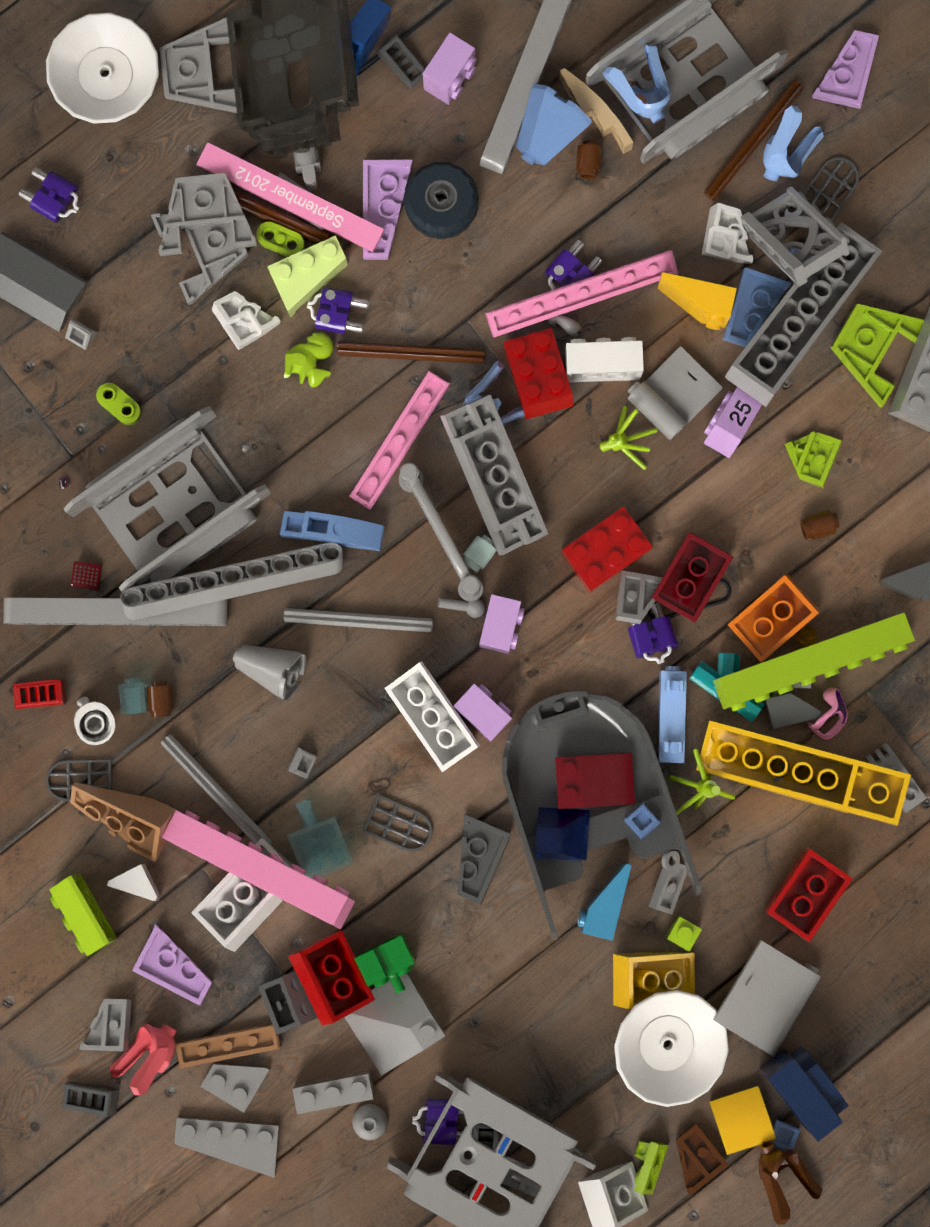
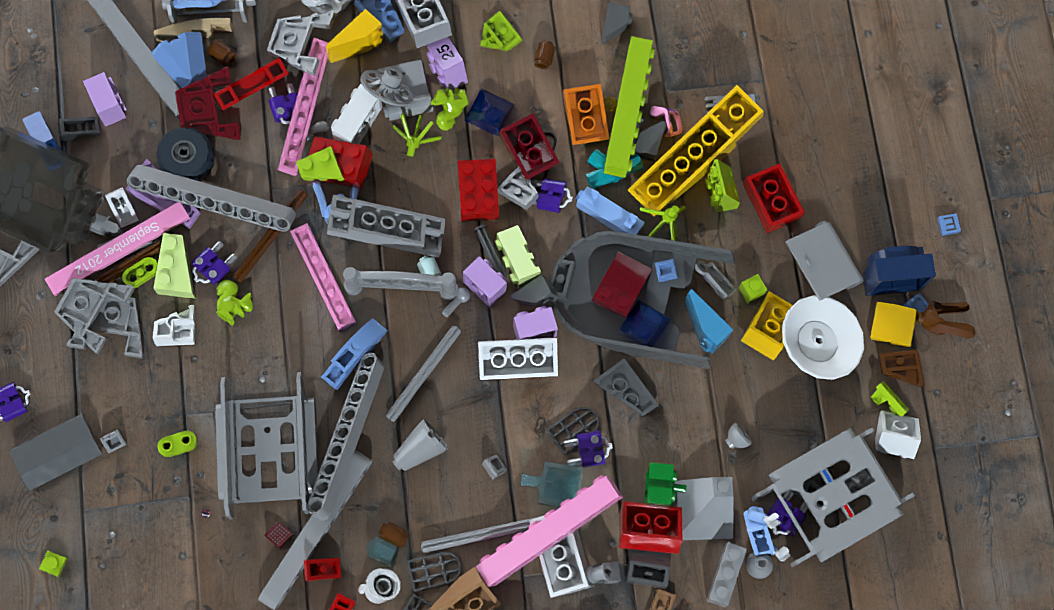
camera: 70 degrees left, 10 degrees down
(75, 646) = (322, 569): none -> red slope
(147, 755) = (426, 567): none -> dark grey window
(254, 955) = (605, 573): none -> light grey piece
(339, 170) = (121, 207): none -> white slope
(383, 856) = (590, 449): none -> dark purple piece
(402, 1103) = (759, 534): none -> light blue torso
(407, 261) = (211, 198): none -> light grey beam
(499, 1016) = (738, 437): none -> light grey brick
(506, 175) = (198, 109): none -> dark red wing
(516, 358) = (320, 166): none -> lime wing
(524, 692) = (536, 293): none -> dark grey slope
(543, 609) = (490, 249): none -> dark grey axle
(554, 642) = (517, 256): none -> yellowish green wedge
(570, 215) = (250, 84): none -> red arch
(654, 226) = (292, 36): none -> light grey wing
(666, 372) = (391, 80): none -> light grey wheel
(688, 459) = (452, 104): none -> lime animal
(710, 504) = (489, 112): none -> clear blue slope
(783, 829) = (722, 187): none -> lime slope
(907, 1118) = (949, 224): none -> medium blue tile

